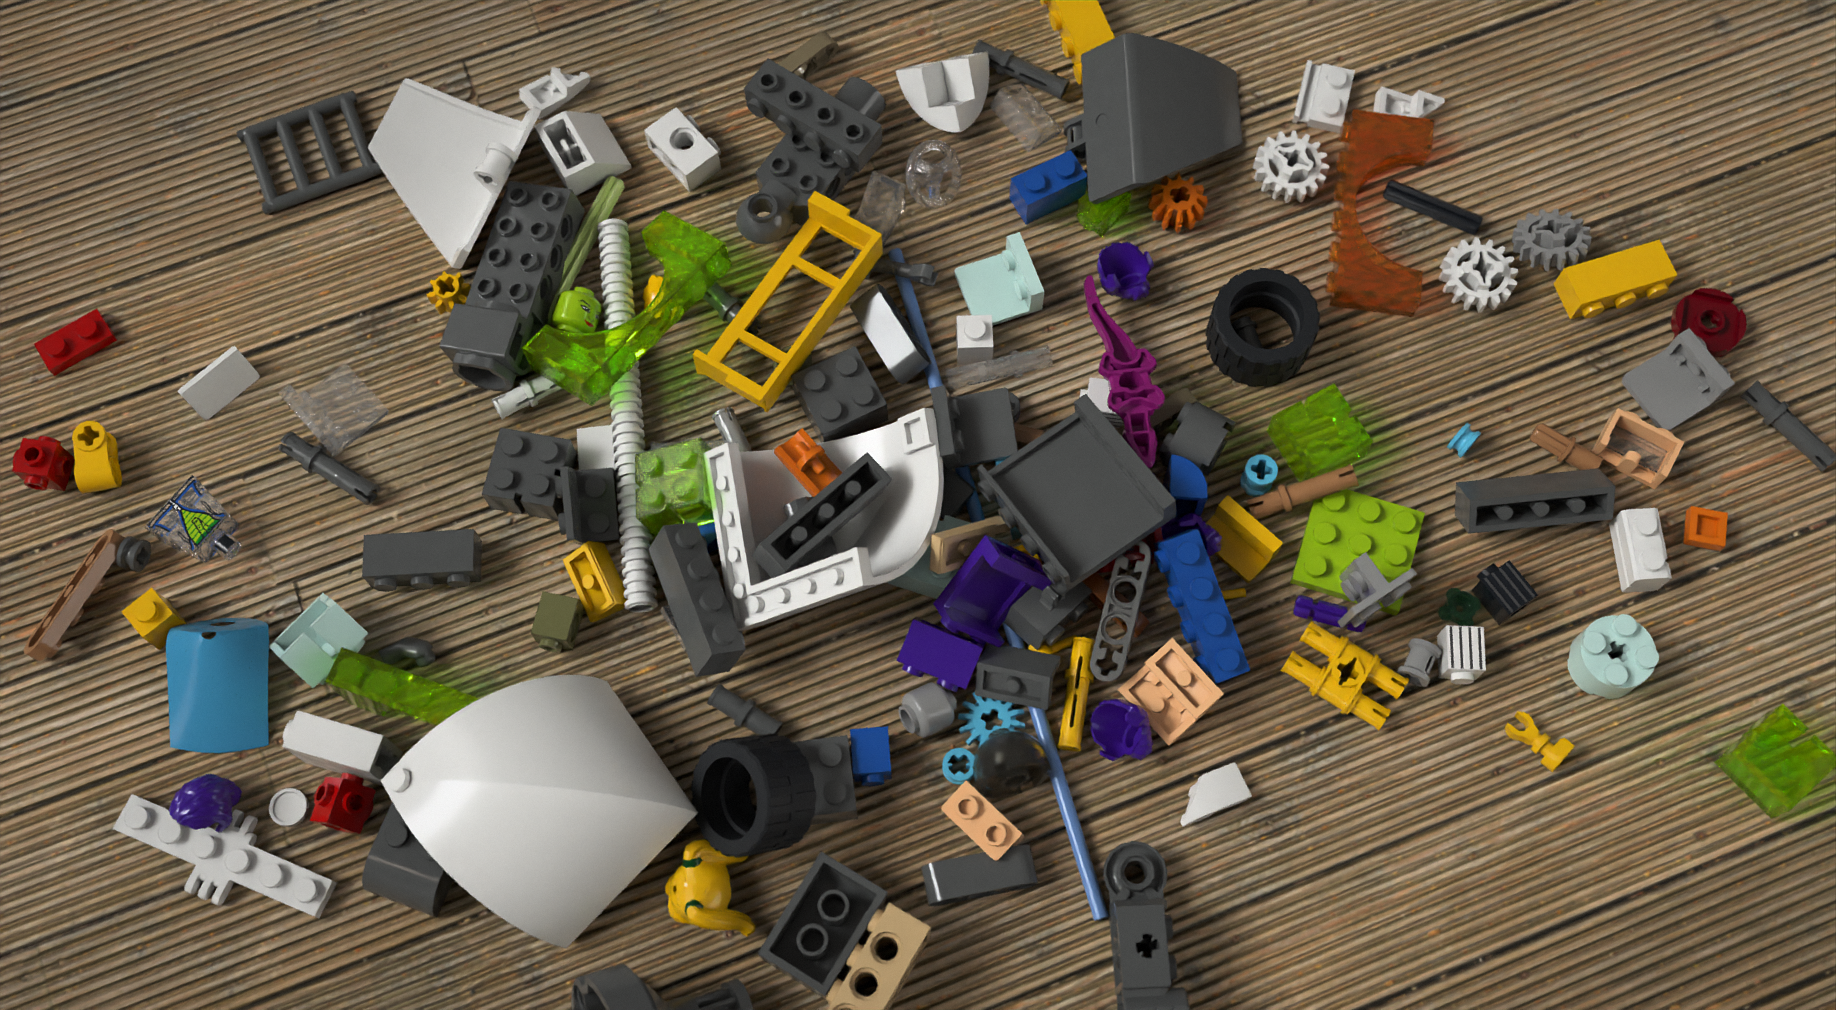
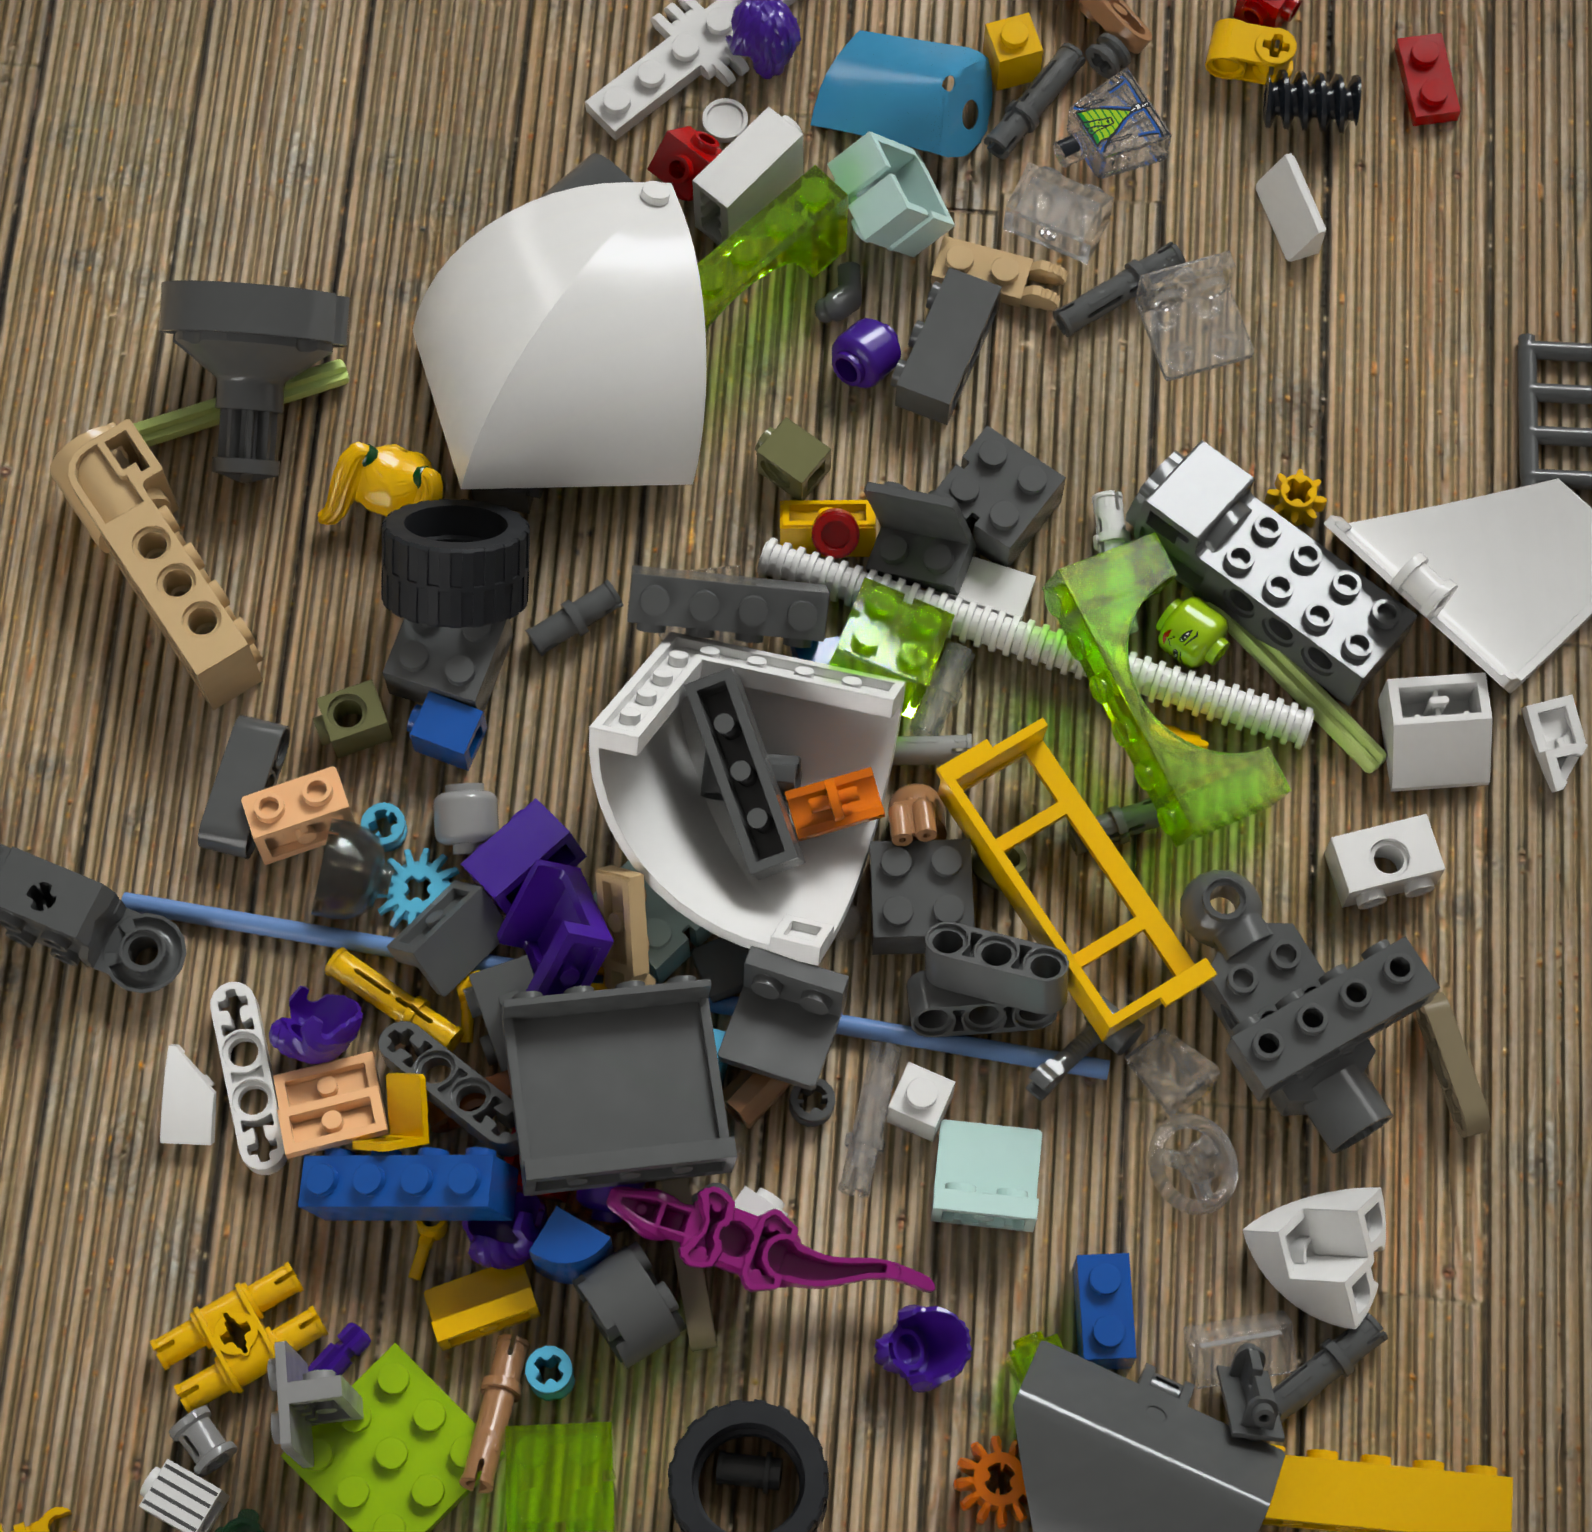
camera: 115 degrees right, 0 degrees up
(124, 399) = (1312, 100): none -> black piece
(204, 591) = (1024, 114): none -> dark grey pin
(281, 531) = (1058, 212): none -> clear brick
(346, 557) = (1002, 269): none -> tan hinge
(452, 610) = (865, 353): none -> dark purple head
(604, 563) = (835, 533): none -> red tile
(789, 418) = (916, 814): none -> medium nougat piece
(822, 925) = (276, 582): dark grey brick -> none
(862, 307) = (996, 967): none -> dark grey beam
(887, 809) = (359, 700): none -> olive brick
(1062, 84) = (1250, 1396): none -> dark grey hinge
(1156, 630) = (406, 1115): none -> yellow bracket
(1176, 763) = (243, 1079): none -> white beam

